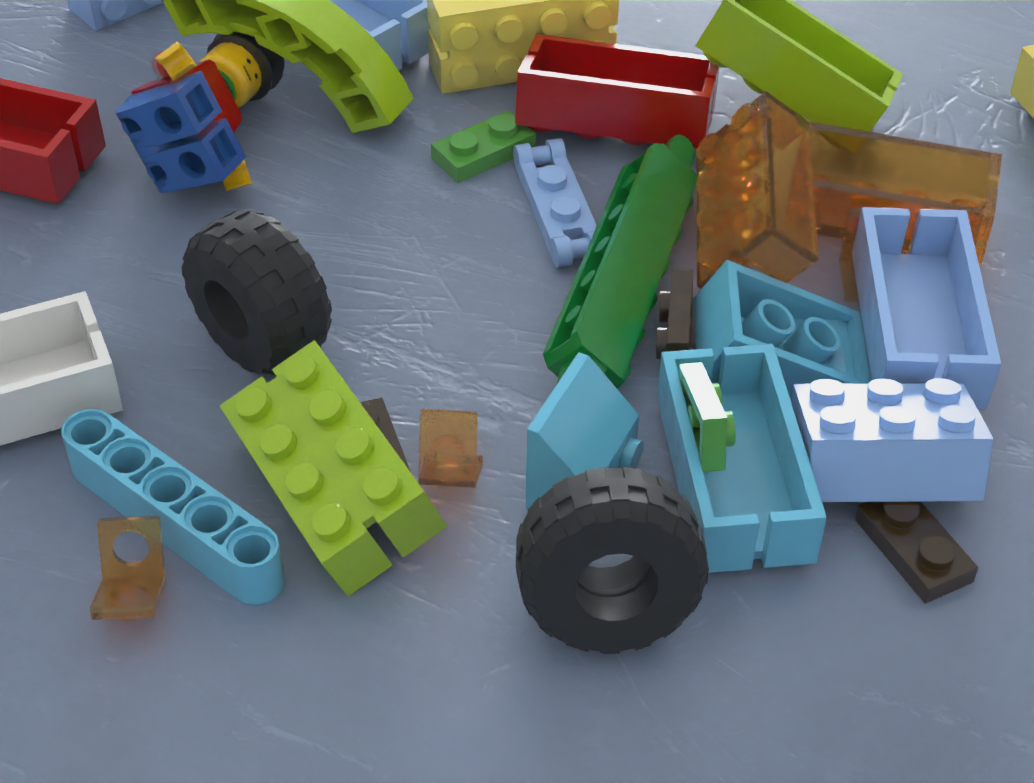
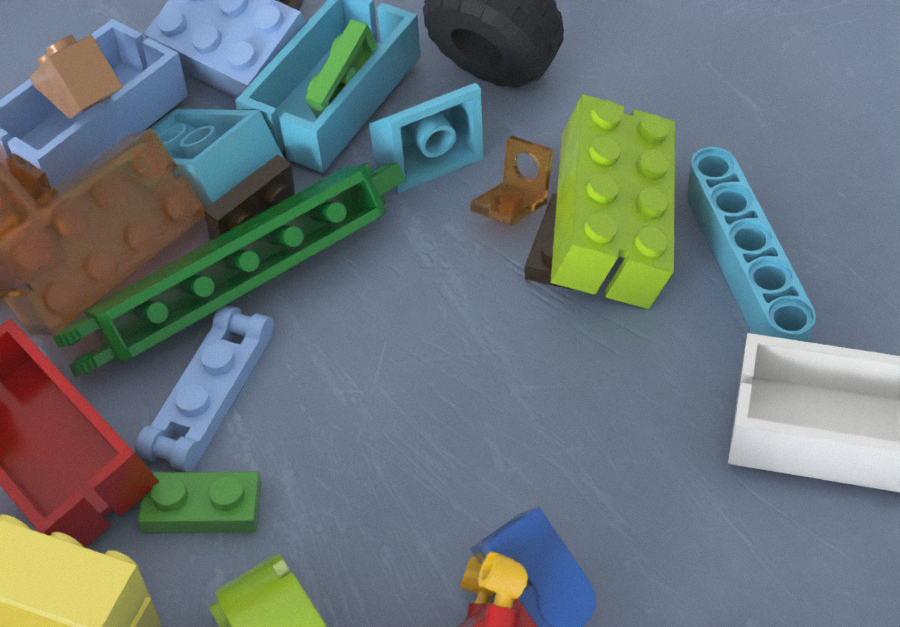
camera: 140 degrees left, 5 degrees up
(126, 587) = (812, 206): clear orange bracket -> none
(255, 290) = (579, 353): black tyre -> none
(913, 250) = (75, 75): none -> medium nougat slope

